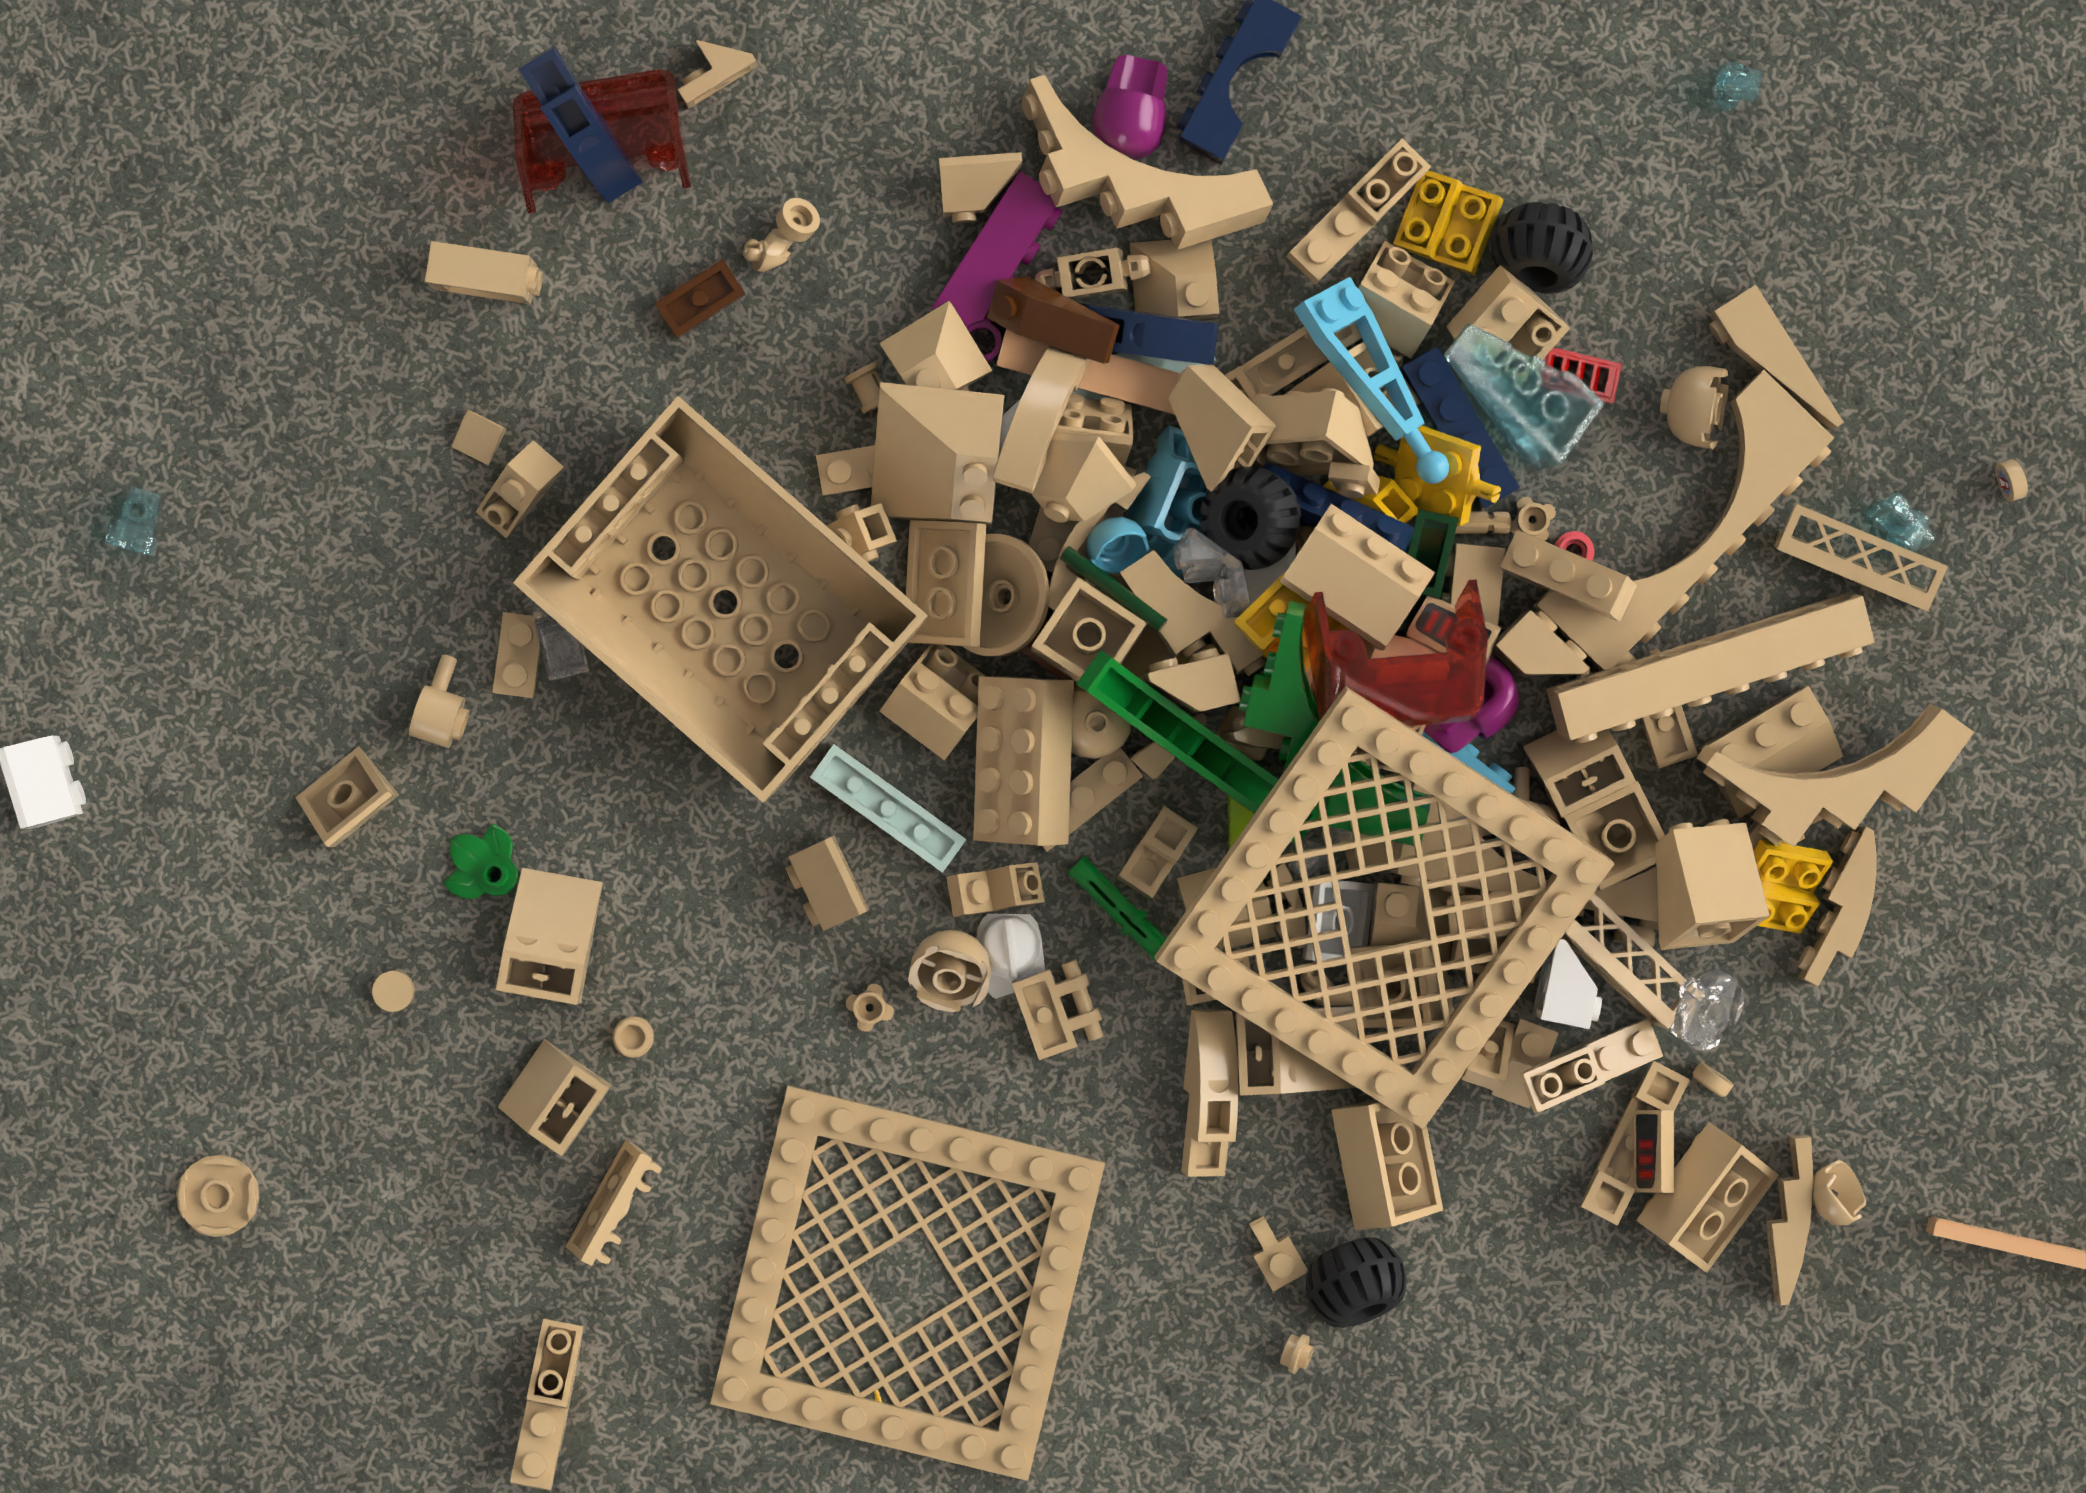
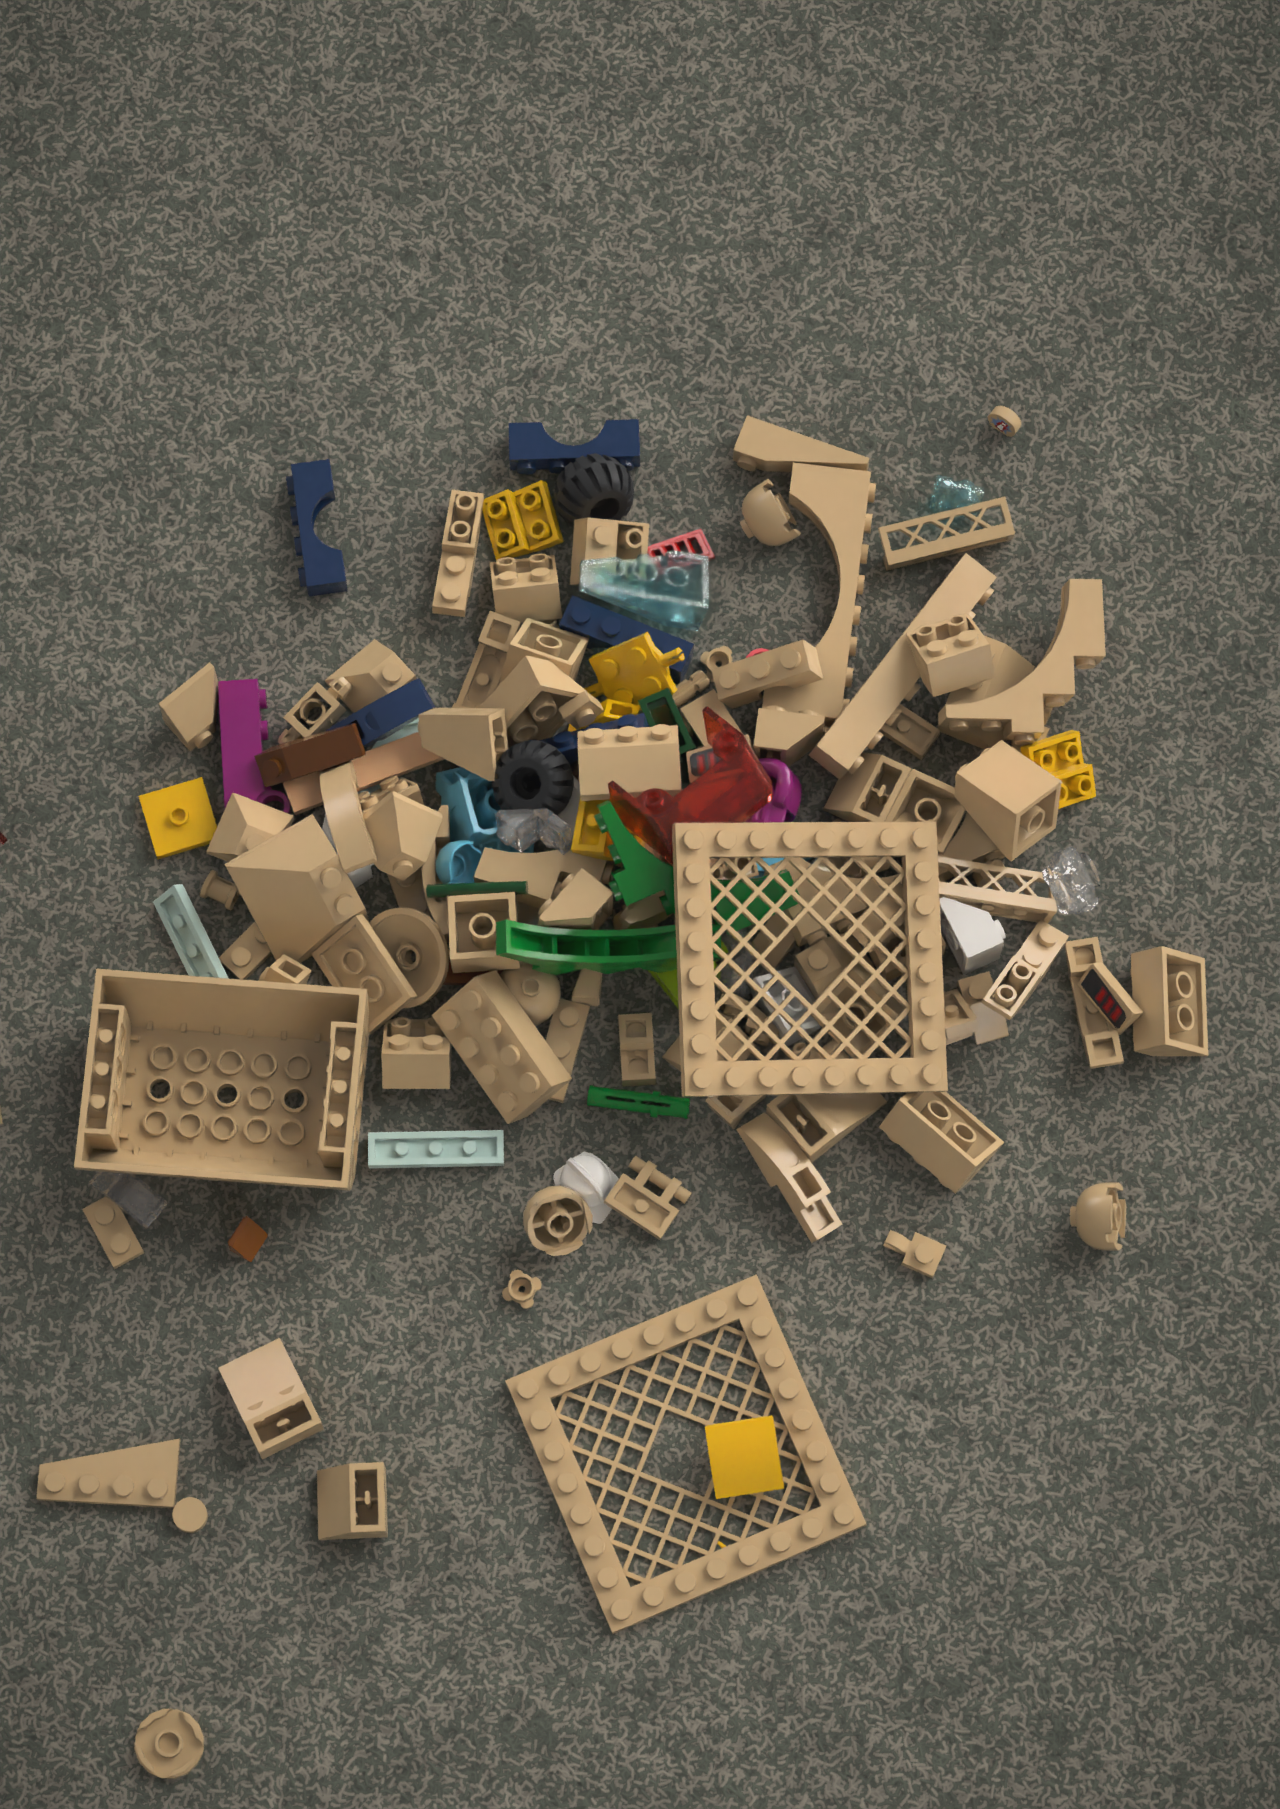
camera: 35 degrees left, 15 degrees down
(345, 797) = (64, 1407): tan slope -> none
(356, 907) = (119, 1477): none -> tan wing
(440, 714) = (86, 1304): tan piece -> none
(476, 861) = (184, 1386): green plate -> none
(519, 488) = (34, 1120): tan slope -> none
(547, 1404) = (500, 1714): tan slope -> none
(610, 1204) = (443, 1546): tan plate -> none
(633, 1036) = (376, 1425): tan tile -> none
(641, 762) = (247, 1239): none -> dark orange slope
(700, 299) = (66, 914): reddish brown plate -> none
(795, 222) = (93, 818): tan arm -> none
(802, 422) = (188, 933): none -> light aqua plate
(827, 883) = (431, 1223): tan slope -> none
(882, 280) = (179, 817): none -> yellow plate
(958, 1334) = (744, 1457): none -> yellow slope
(995, 889) = (549, 1149): tan slope -> none
(1130, 191) = (302, 640): tan arch -> none
(1132, 107) = (263, 597): magenta piece -> none
(1297, 1353) = (980, 1304): tan plate -> none
(1336, 310) = (492, 610): medium azure plate -> none
(1356, 1282) = (983, 1228): black wheel -> none
(1476, 1356) = (1100, 1216): none -> tan cylinder
(1516, 155) = (535, 450): none -> dark blue arch
(1712, 1079) = (1112, 927): tan tile -> none
(1736, 83) = (638, 306): clear light blue plate -> none
(1764, 697) = (951, 654): none -> tan slope
(1789, 1235) = (1240, 986): tan slope -> none
(1850, 1197) = (1250, 939): tan hair -> none
(1852, 892) = (1107, 745): tan slope -> none

